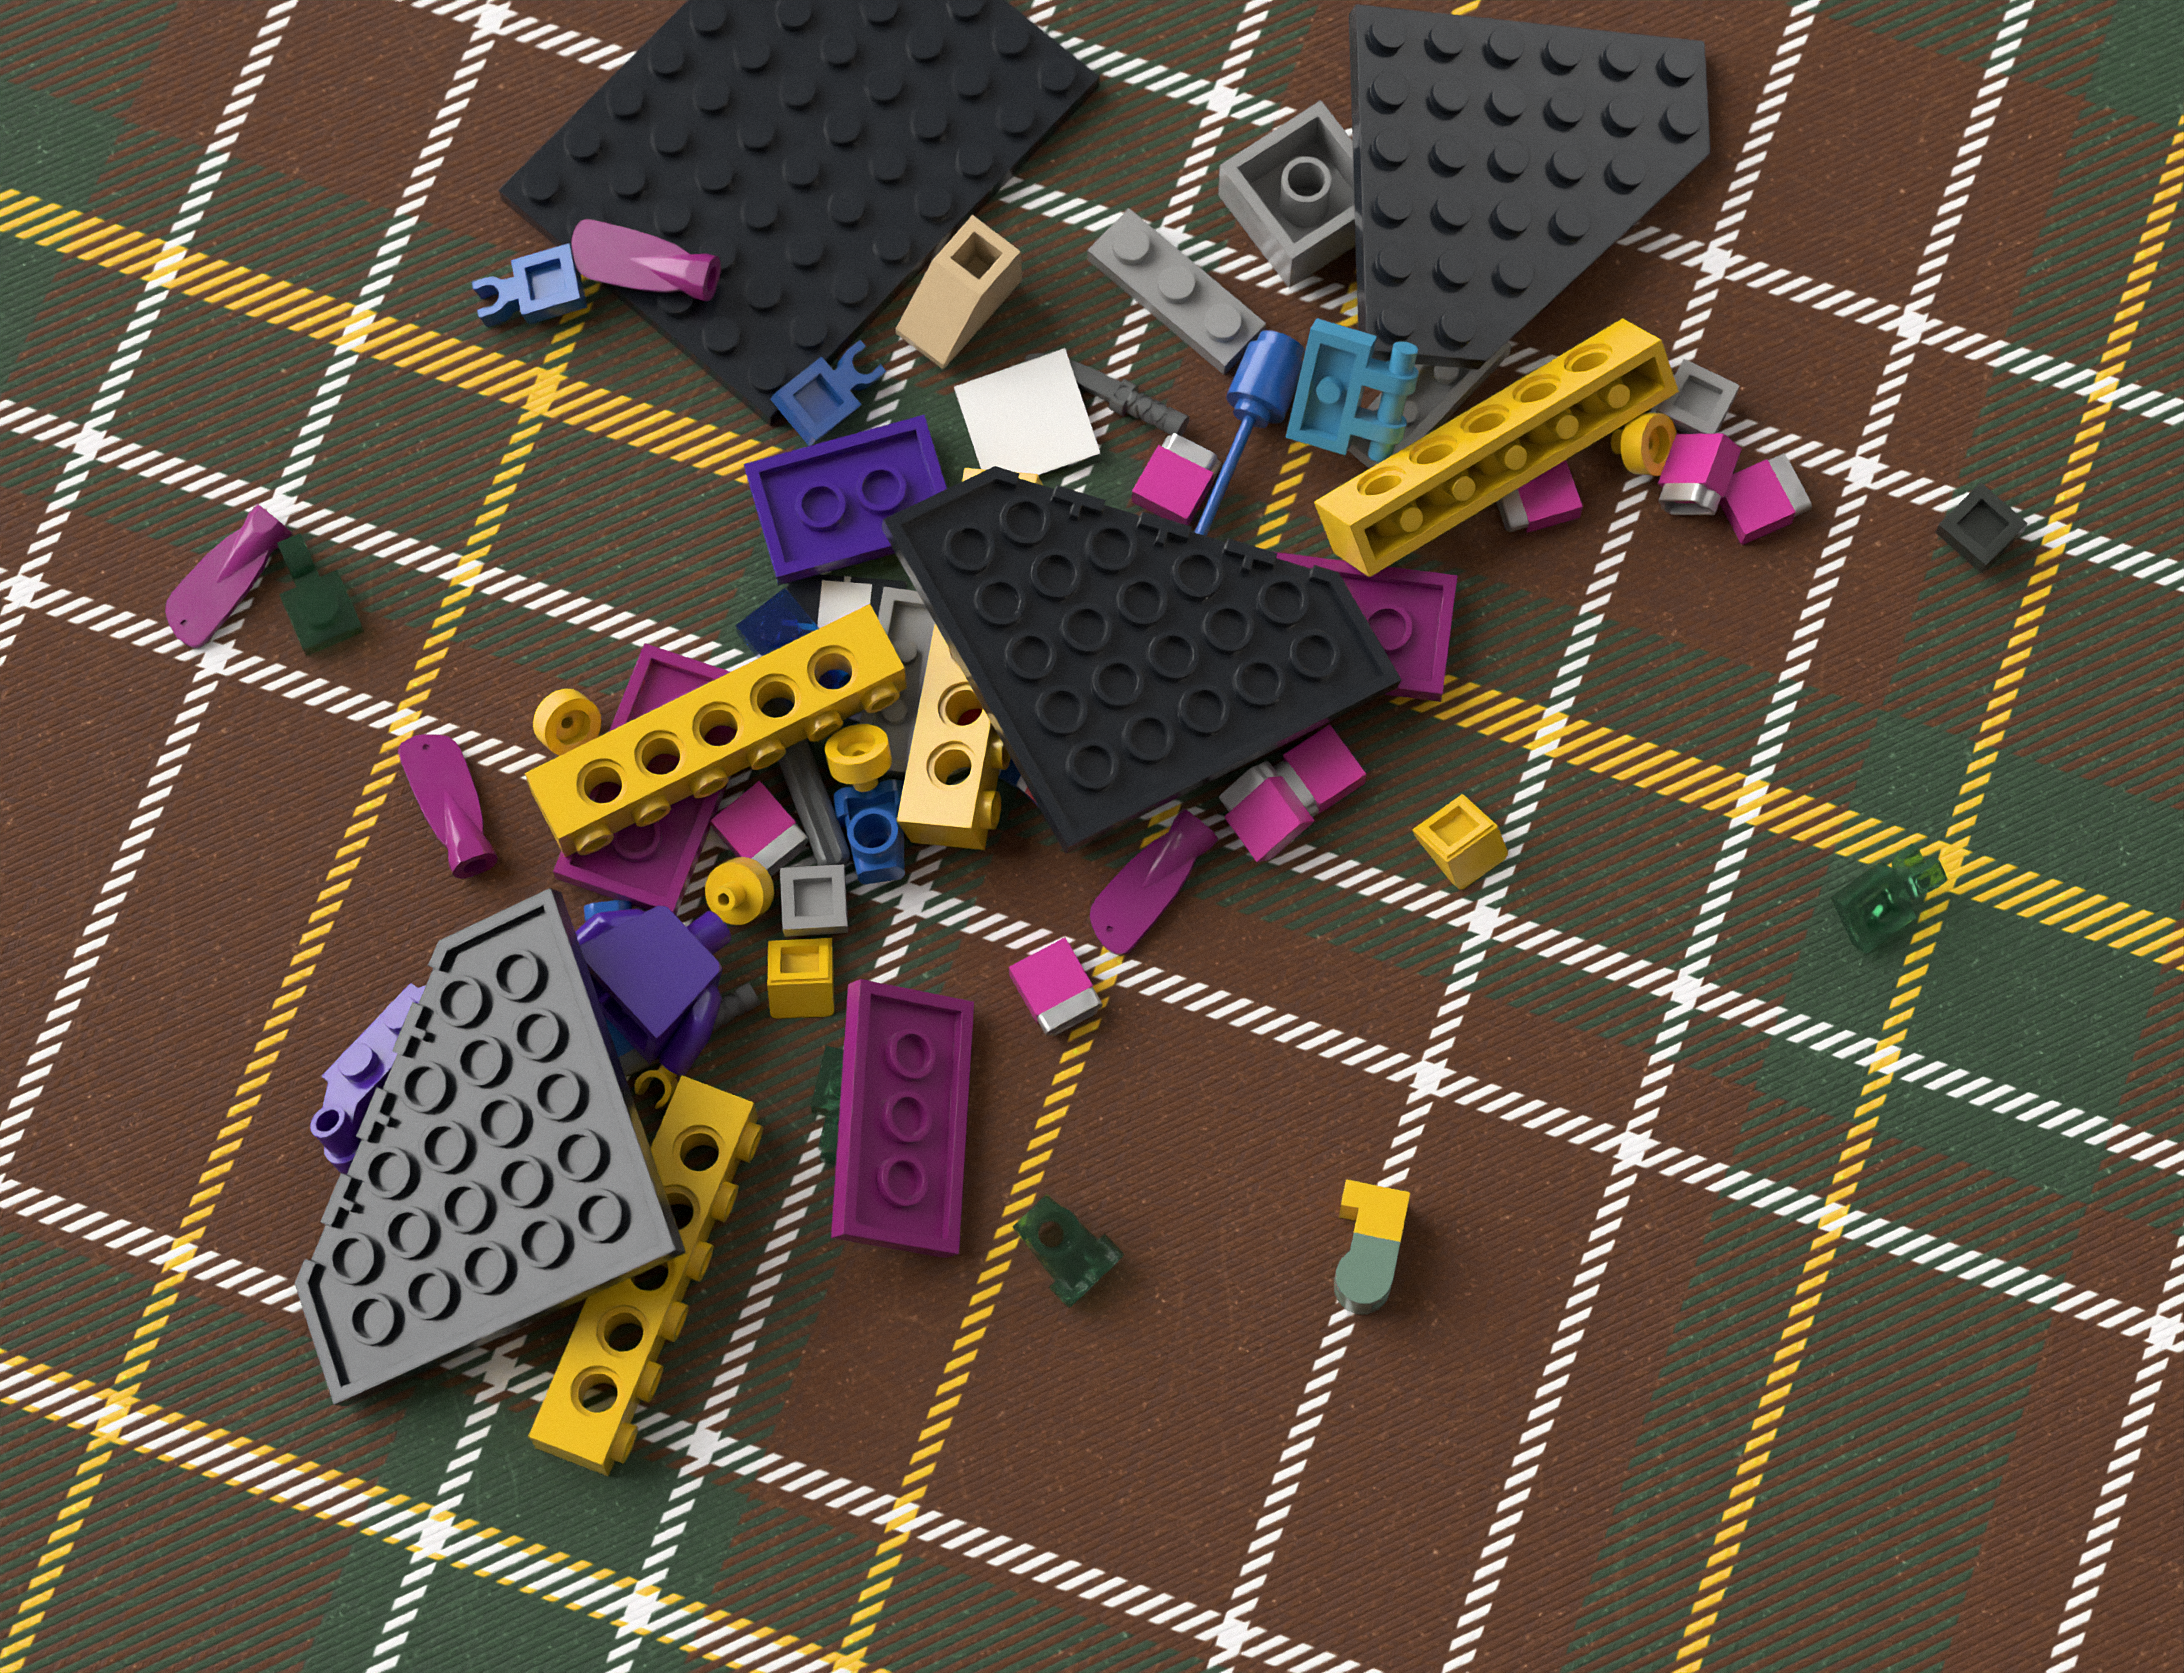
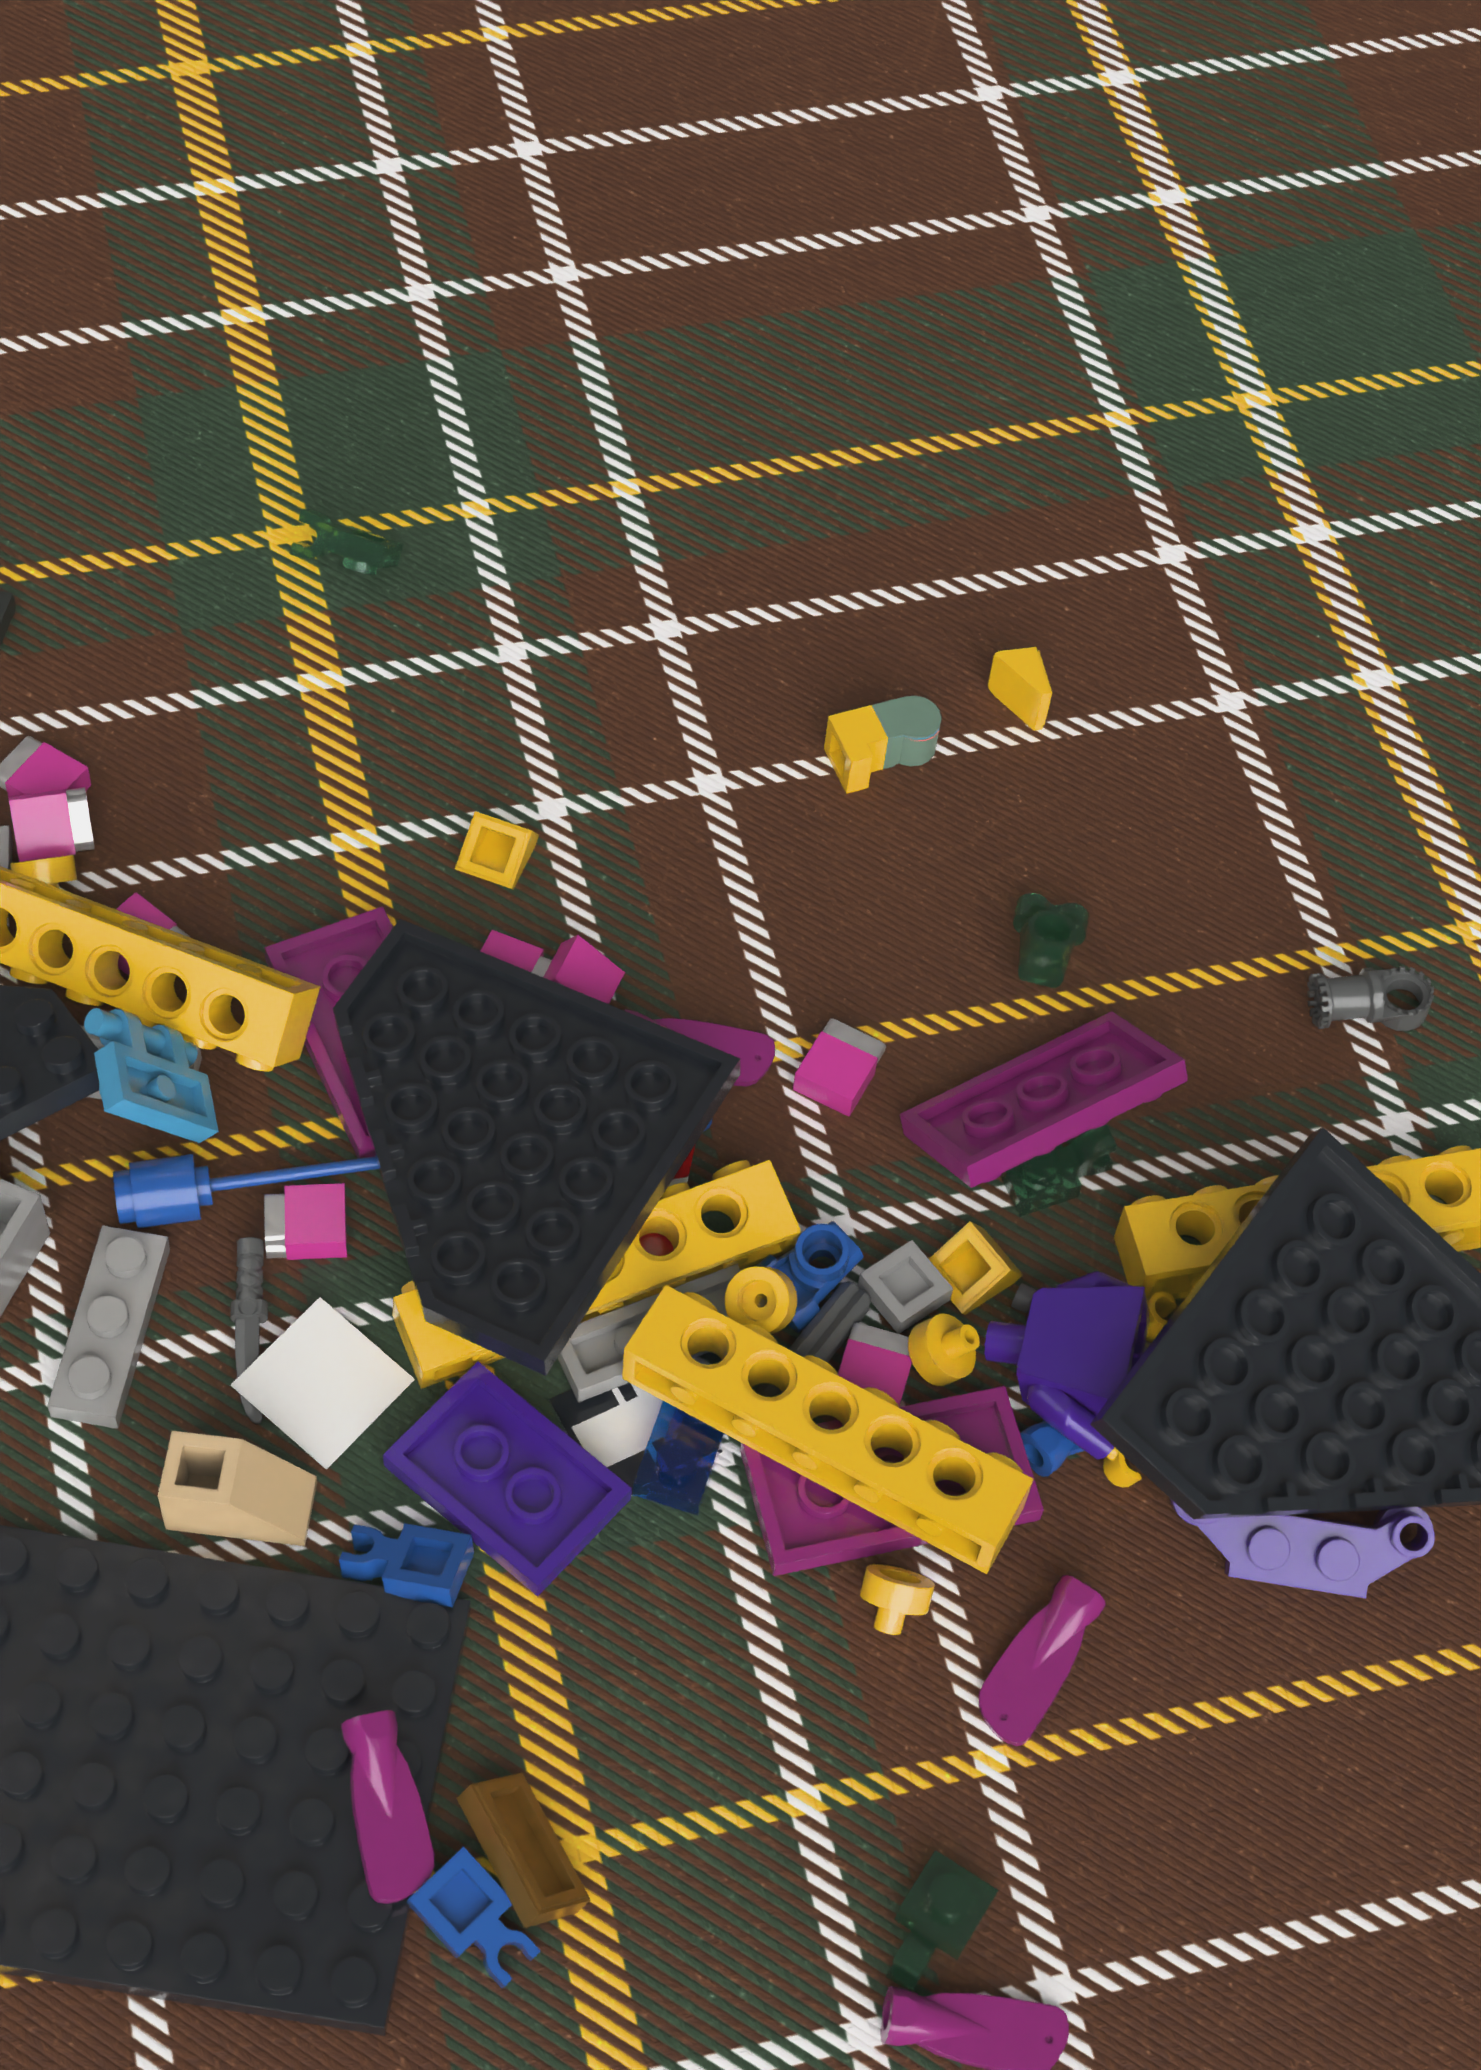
camera: 130 degrees left, 15 degrees down
(557, 346) = (523, 1849): none -> pearl gold tile
(828, 1494) = (1367, 998): none -> dark grey connector
(1350, 1420) = (1021, 684): none -> yellow slope

